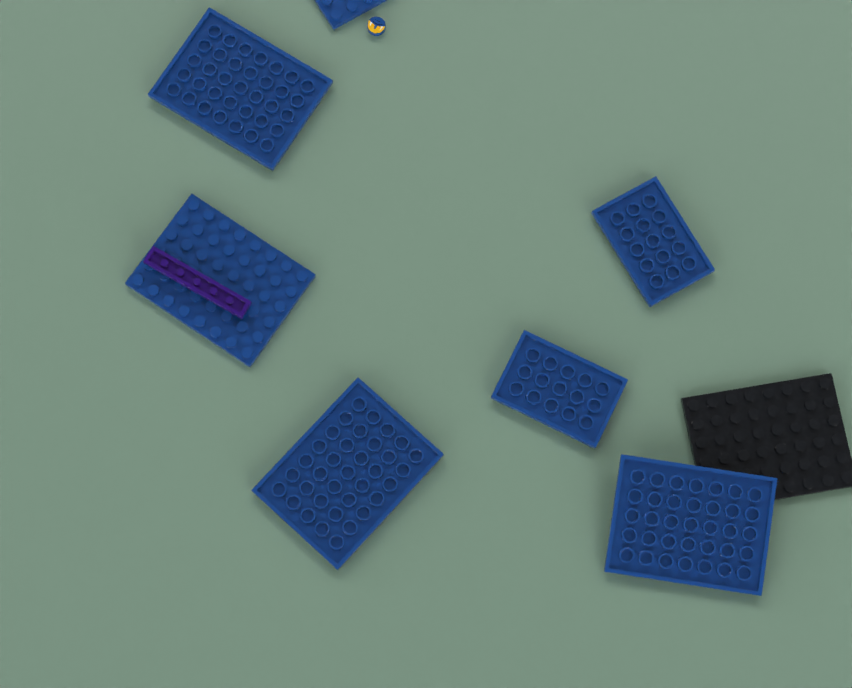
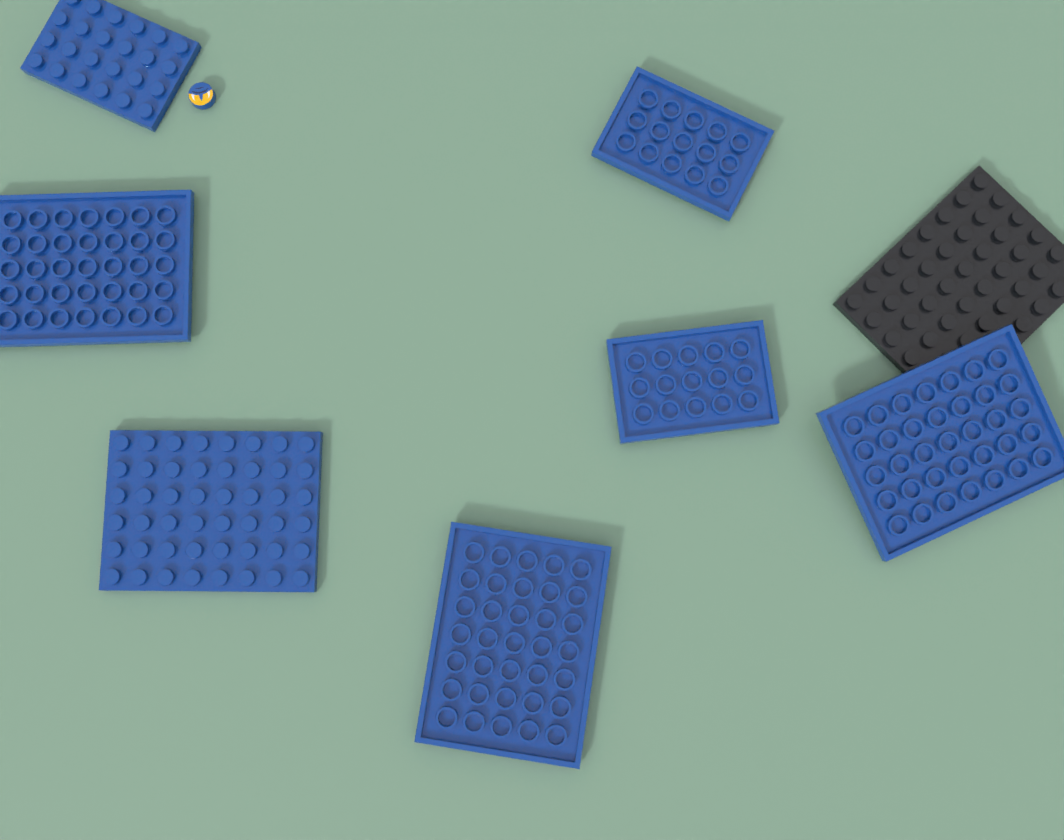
camera: 25 degrees left, 5 degrees up
(197, 282) = (184, 534): dark purple plate -> none

